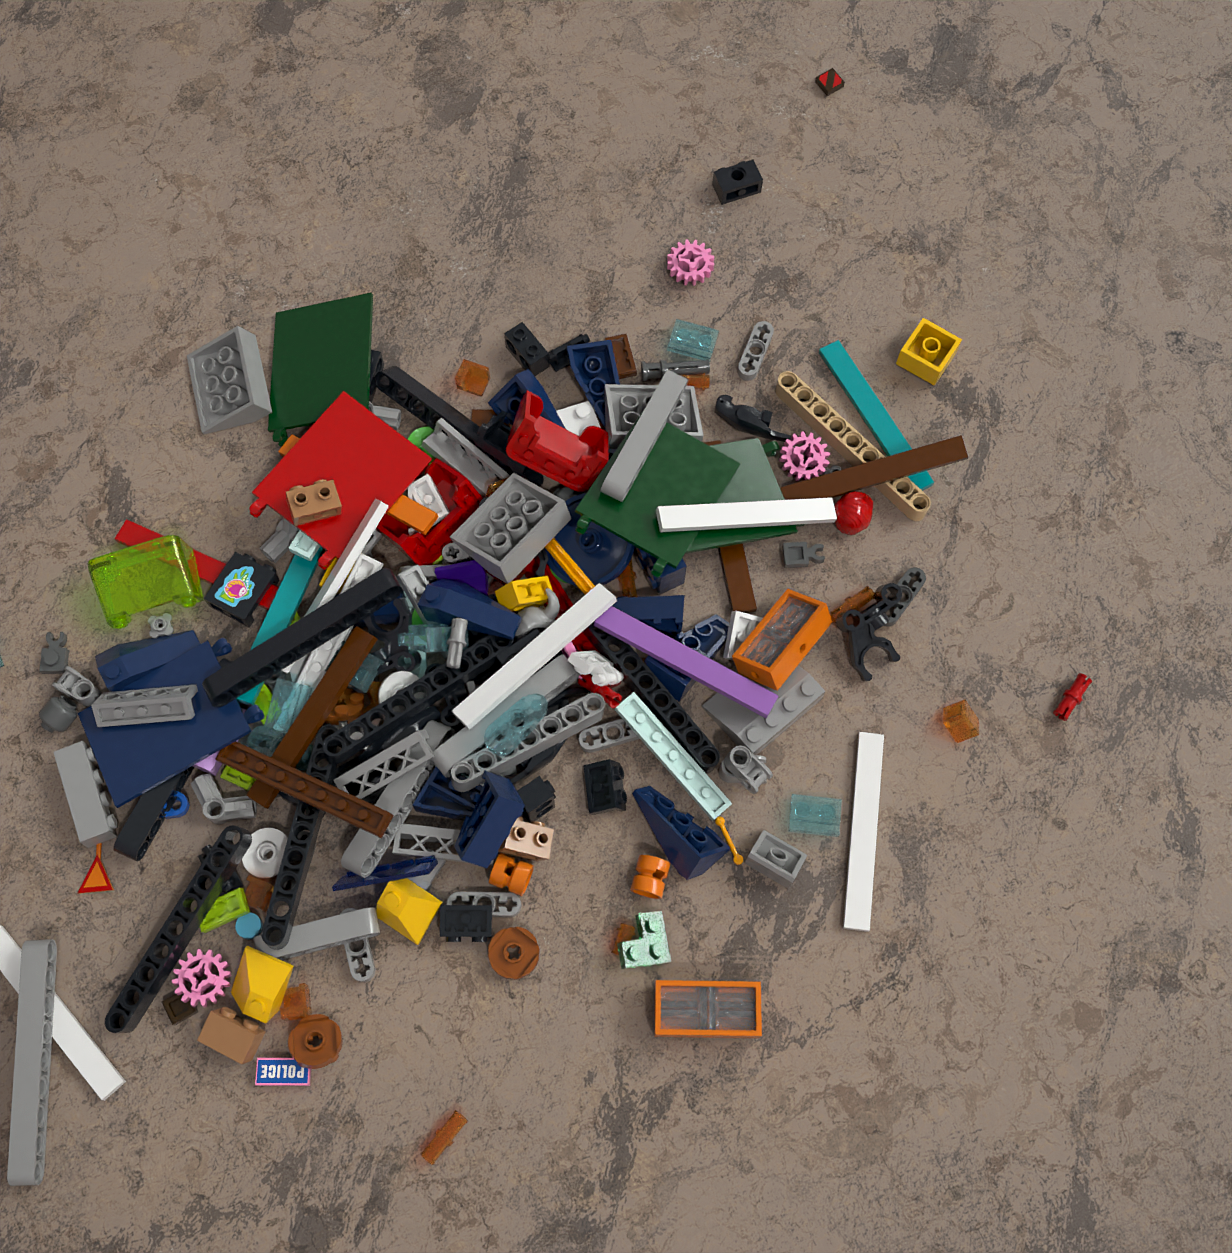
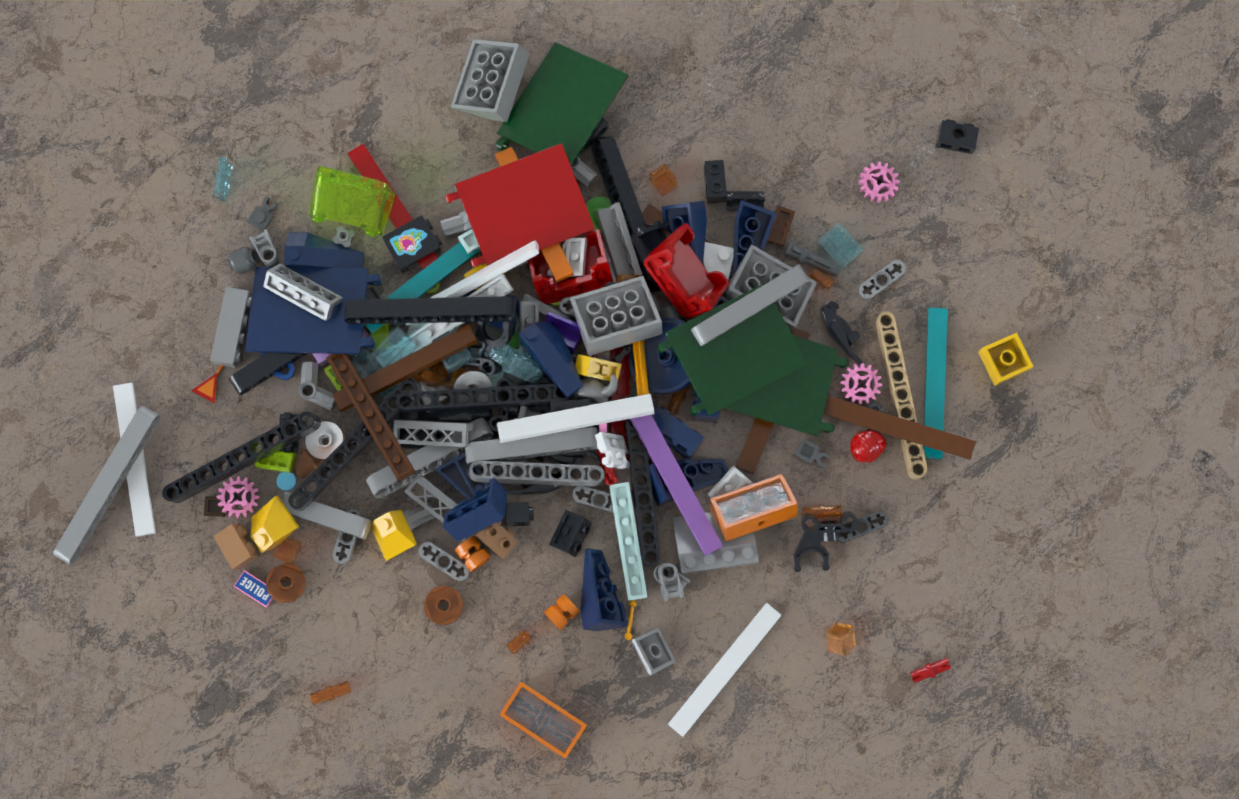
camera: 30 degrees right, 10 degrees up
(313, 502) = (491, 216): medium nougat brick -> none
(386, 873) = (390, 503): clear blue windscreen -> none
(456, 642) = (528, 377): light grey axle -> none
(466, 921) = (424, 566): black bracket -> none
(530, 710) = (548, 454): clear light blue piece -> none
(652, 944) = (532, 658): clear green plate -> none
(745, 514) = (785, 405): white tile -> none
(815, 815) = (698, 639): clear light blue plate -> none
(829, 82) = (1086, 93): dark brown tile -> none

